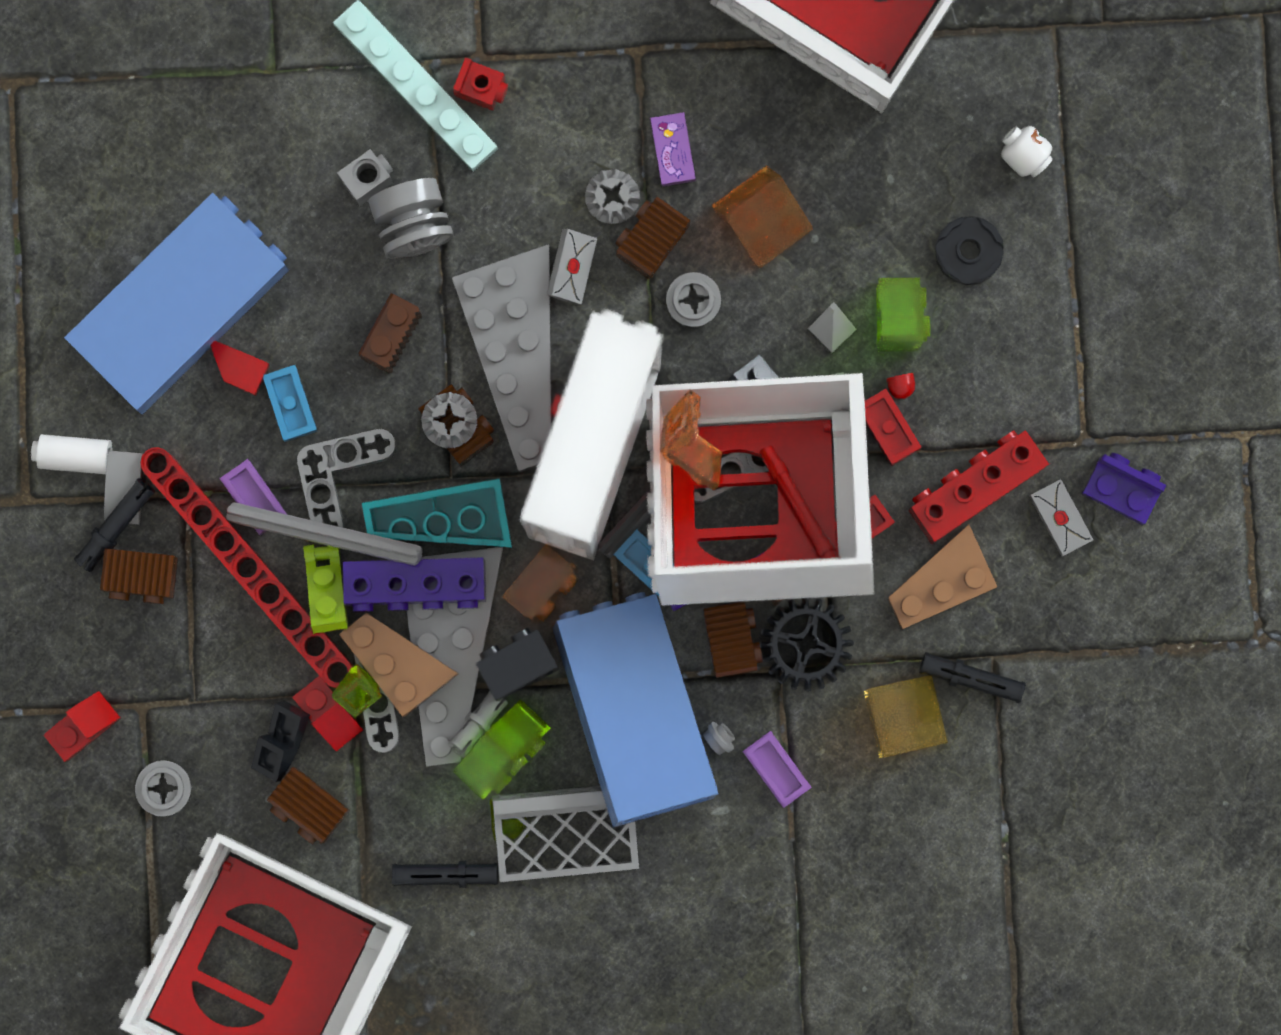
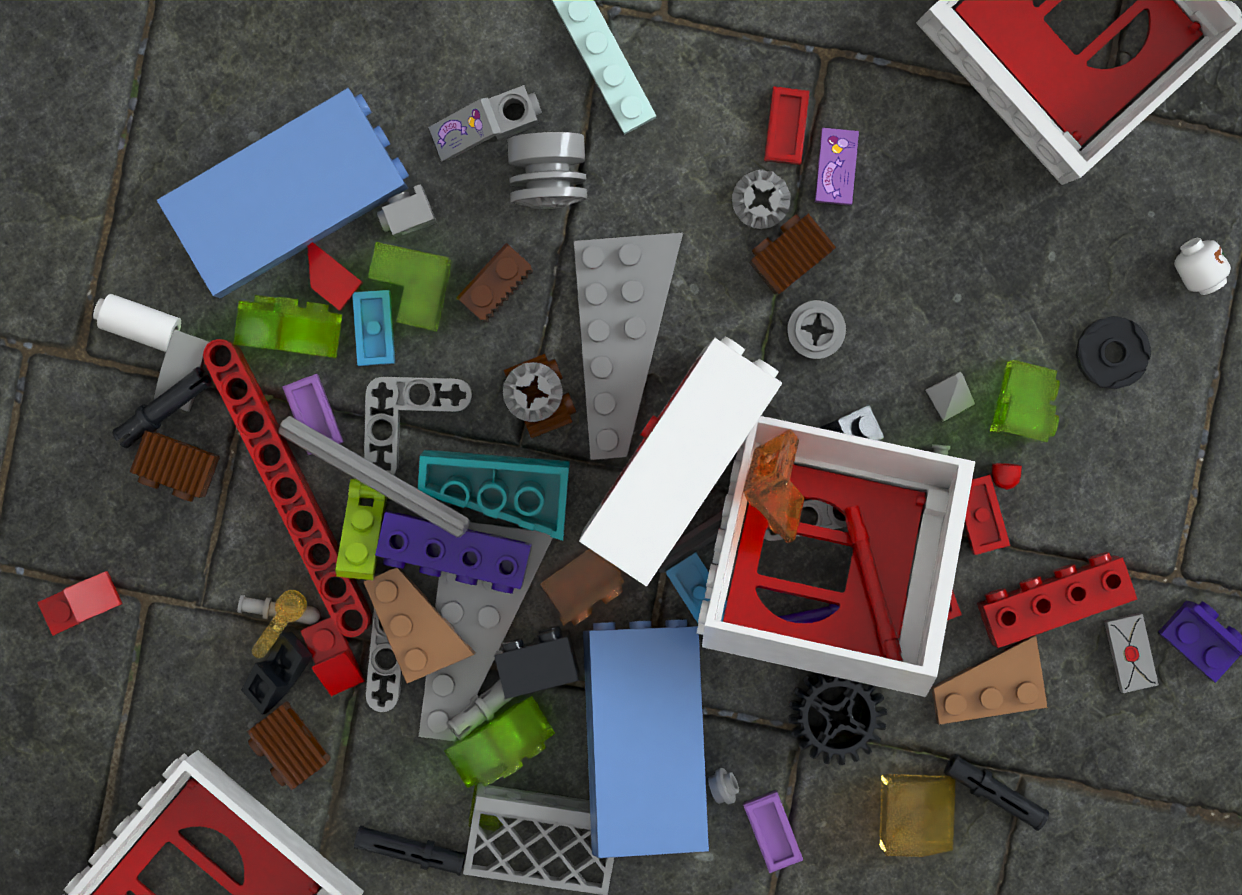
camera: 10 degrees right, 5 degrees up
(151, 776) = (132, 697): light grey gear -> none
(211, 421) = (286, 327): none -> clear neon green brick
(266, 684) = (267, 609): none -> light grey piece
(277, 676) = (288, 608): none -> clear yellow piece
(294, 292) = (407, 213): none -> light grey brick
(320, 344) = (421, 276): none -> clear neon green brick
(327, 202) = (464, 129): none -> light grey tile
(357, 691) = (366, 645): clear neon green slope -> none
(484, 97) = (640, 46): red brick -> none
(571, 266) = (700, 262): light grey tile -> none
(618, 124) = (786, 125): none -> red tile
(731, 639) = (762, 694): reddish brown brick -> none
(763, 216) = (912, 260): clear orange bracket -> none

